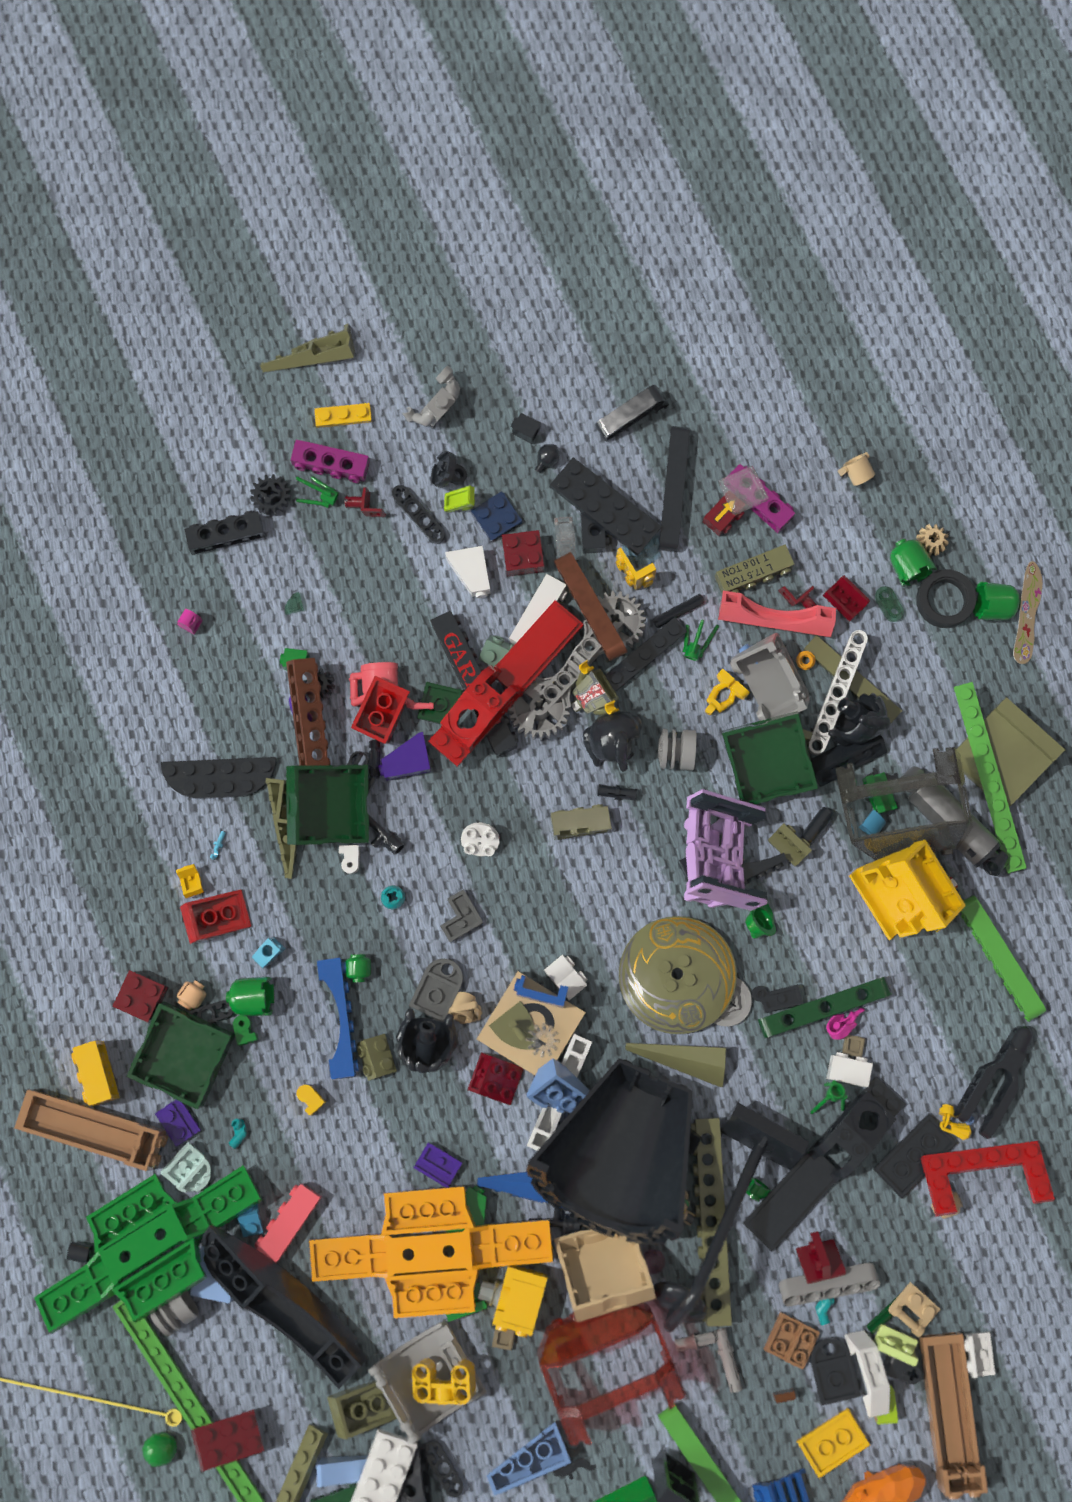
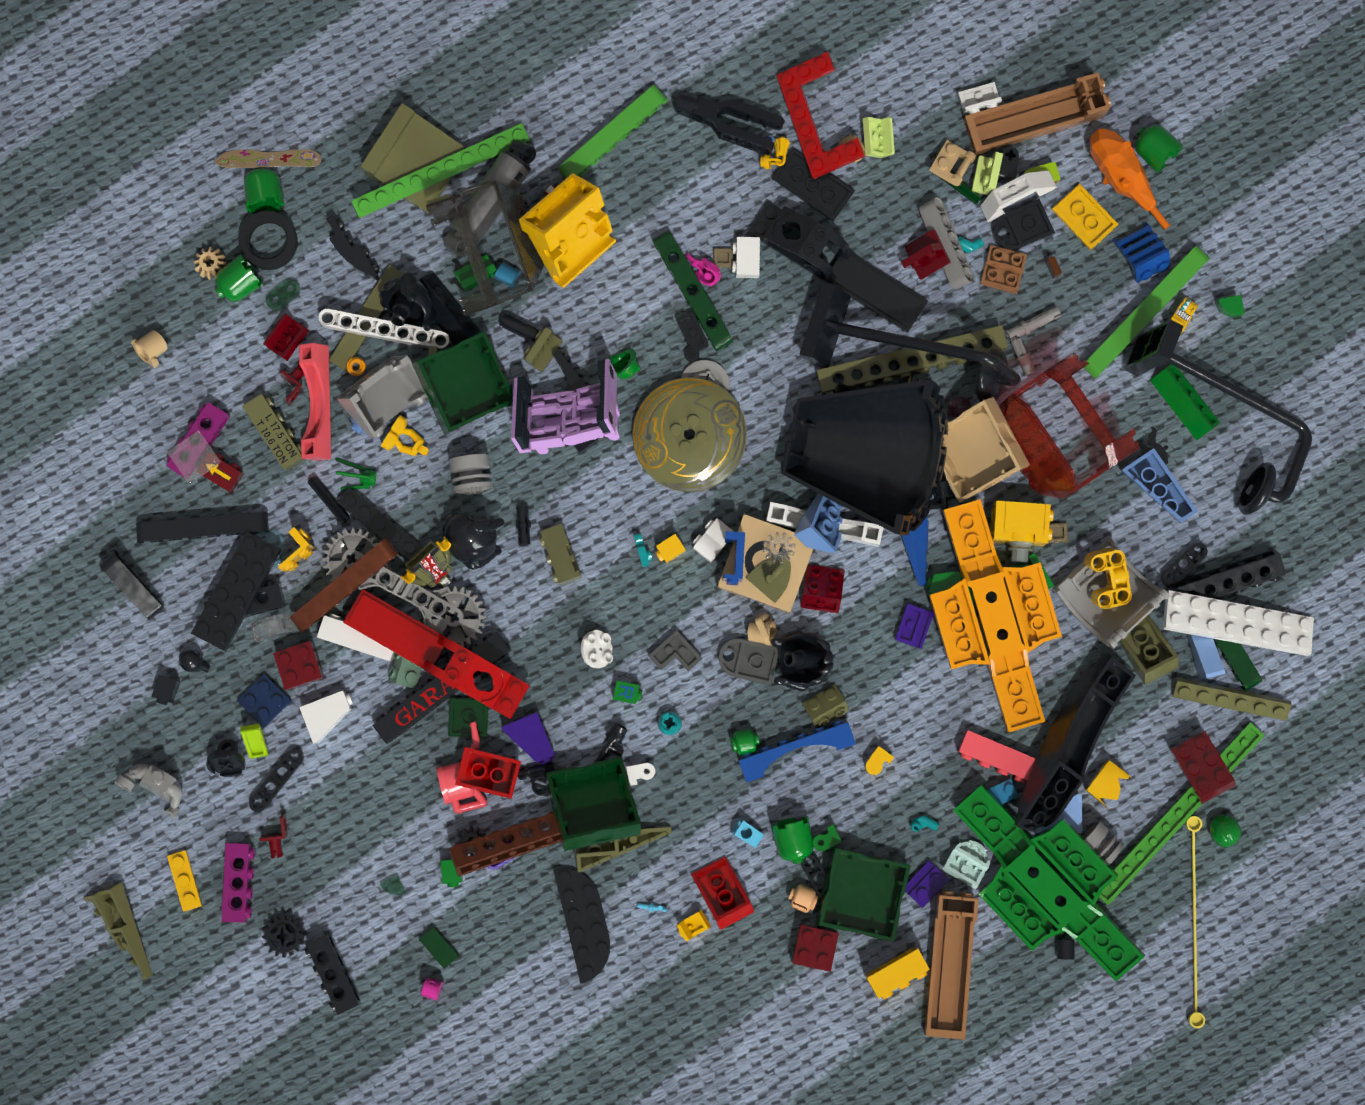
camera: 100 degrees left, 5 degrees up
(226, 635) = (439, 947): none -> dark green tile
(235, 1332) = (1107, 783): none -> yellow piece
(328, 494) = (273, 876): green plant -> none
(431, 861) = (627, 692): none -> green brick
(564, 904) = (645, 555): none -> teal plate
(565, 931) = (670, 549): none -> yellow brick
(696, 1061) = (767, 399): olive wedge -> none
(756, 1190) = (875, 322): green piece -> none
(834, 1093) = (772, 267): green plant -> none
(917, 678) = (353, 255): none -> black slope
(954, 1235) = (878, 137): none -> yellowish green bracket

